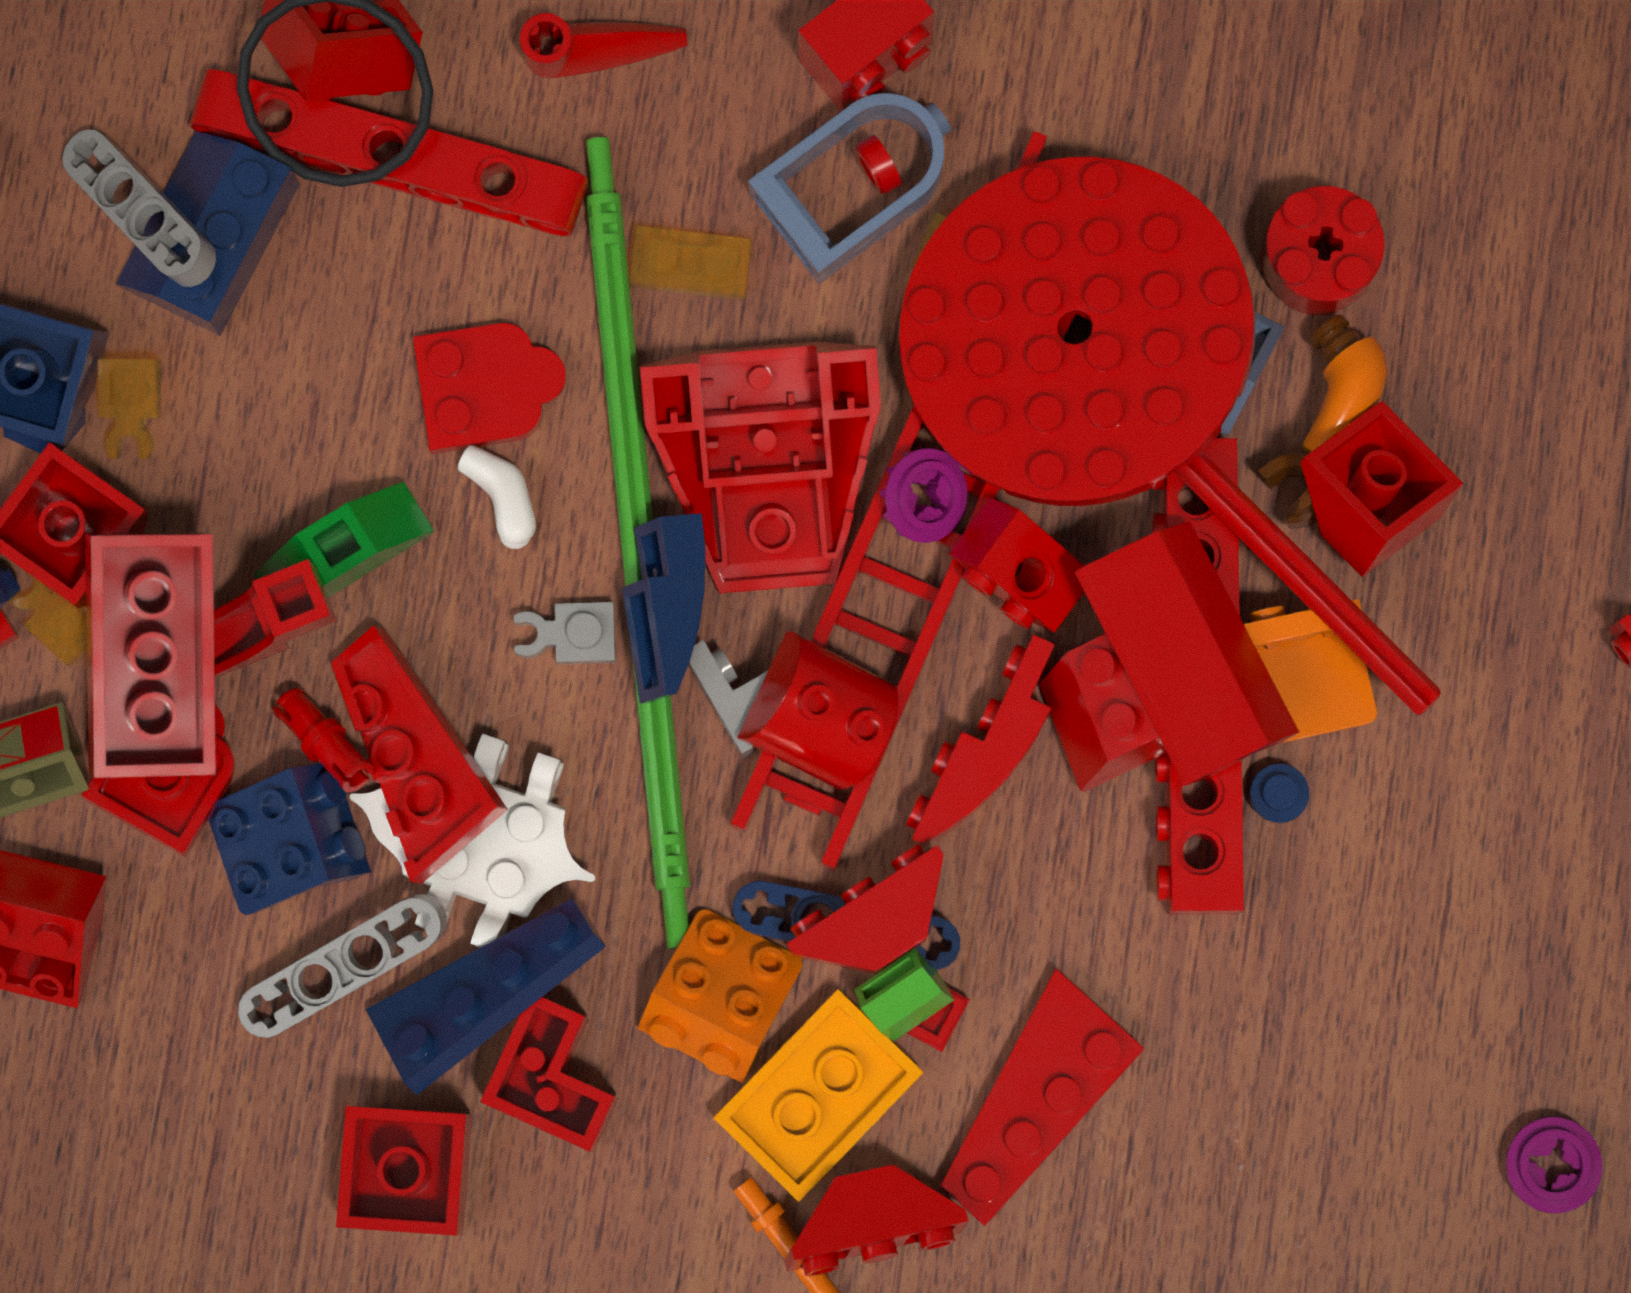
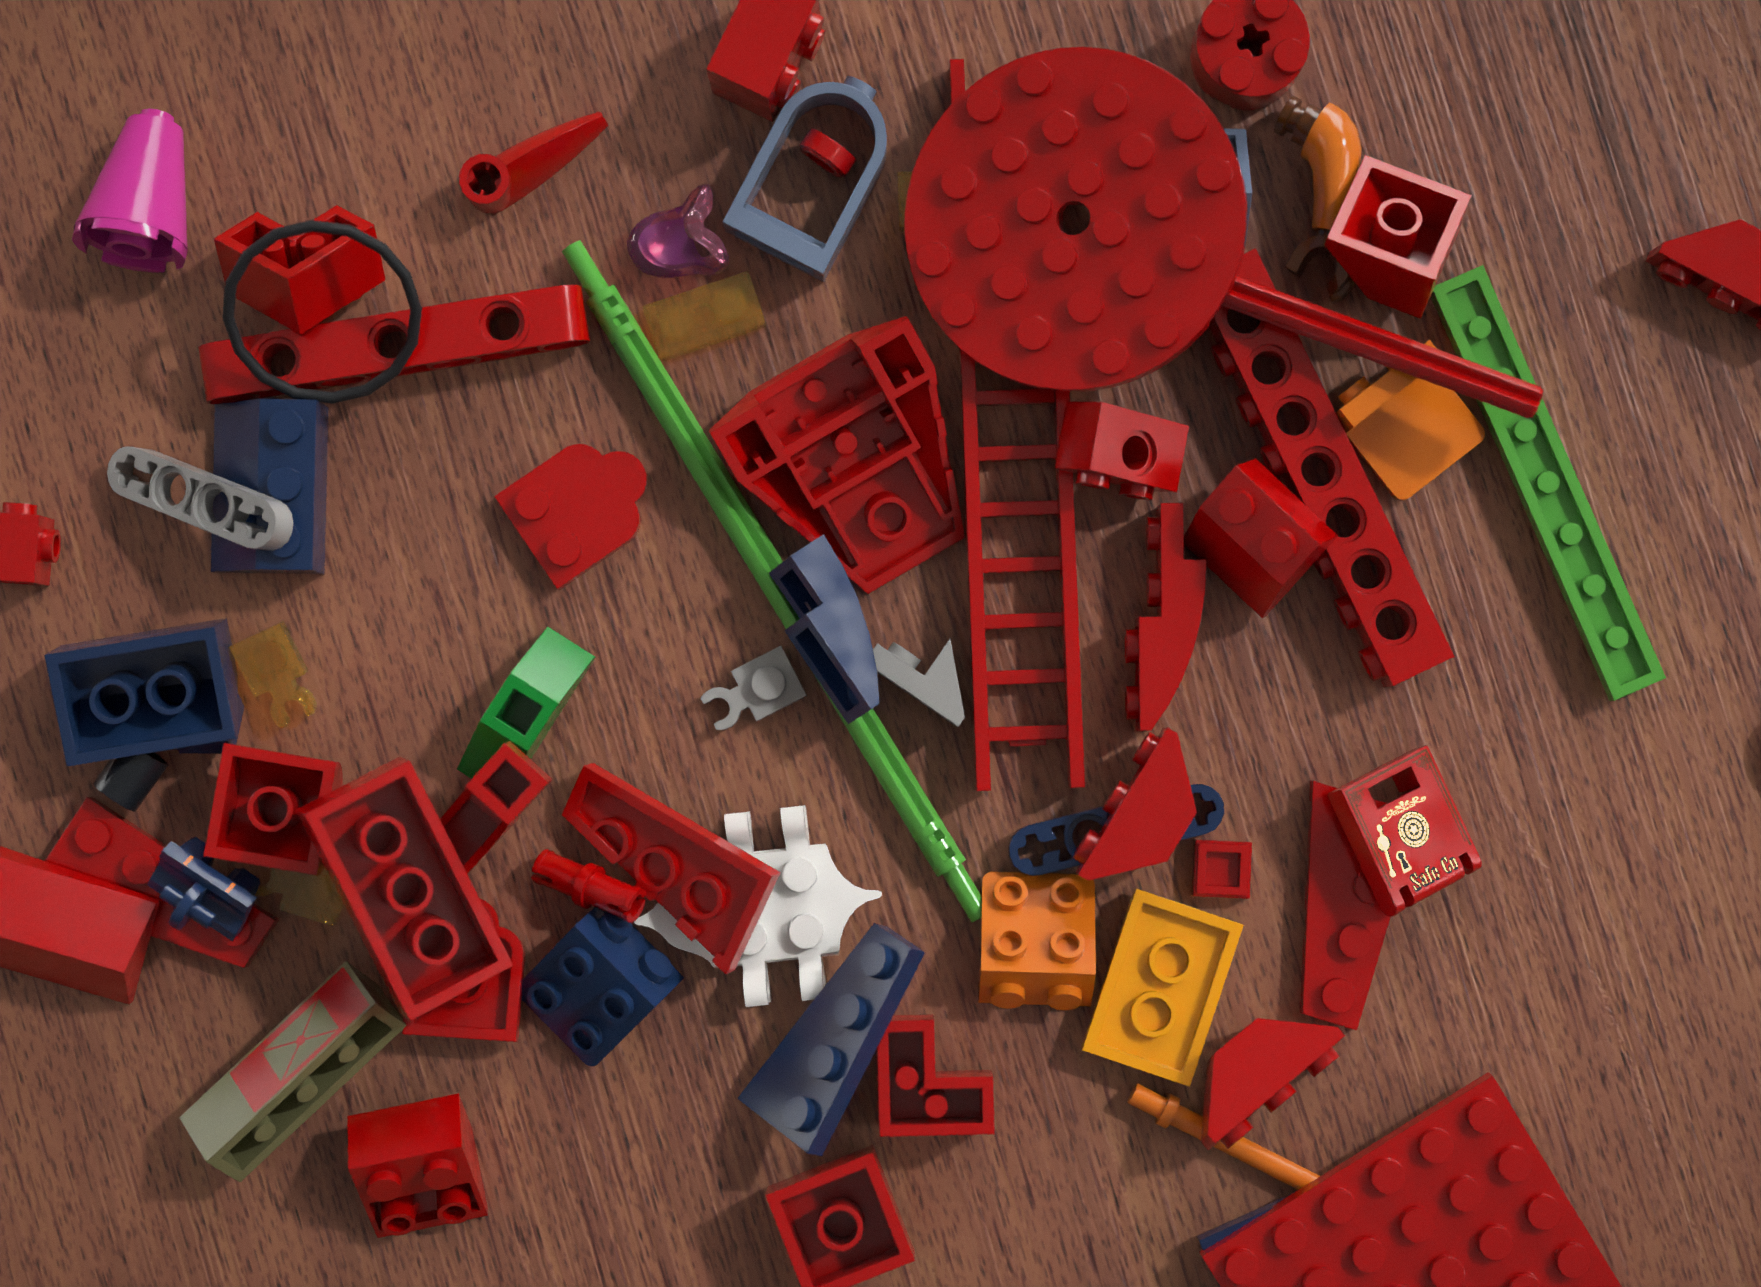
camera: 25 degrees left, 5 degrees up
(340, 962) = (705, 1075): light grey beam -> none
(507, 491) = (643, 593): white arm -> none
(687, 177) = (665, 240): none -> clear pink piece
(821, 713) = (1011, 658): red brick -> none
(903, 995) = (1196, 868): bright green piece -> none
(945, 488) = (1022, 410): magenta gear -> none
(1120, 1069) = (1411, 842): none -> red container
(1186, 652) = (1306, 458): red slope -> none
(1279, 793) = (1432, 538): dark blue plate -> none
(1412, 803) = (1551, 493): none -> bright green plate

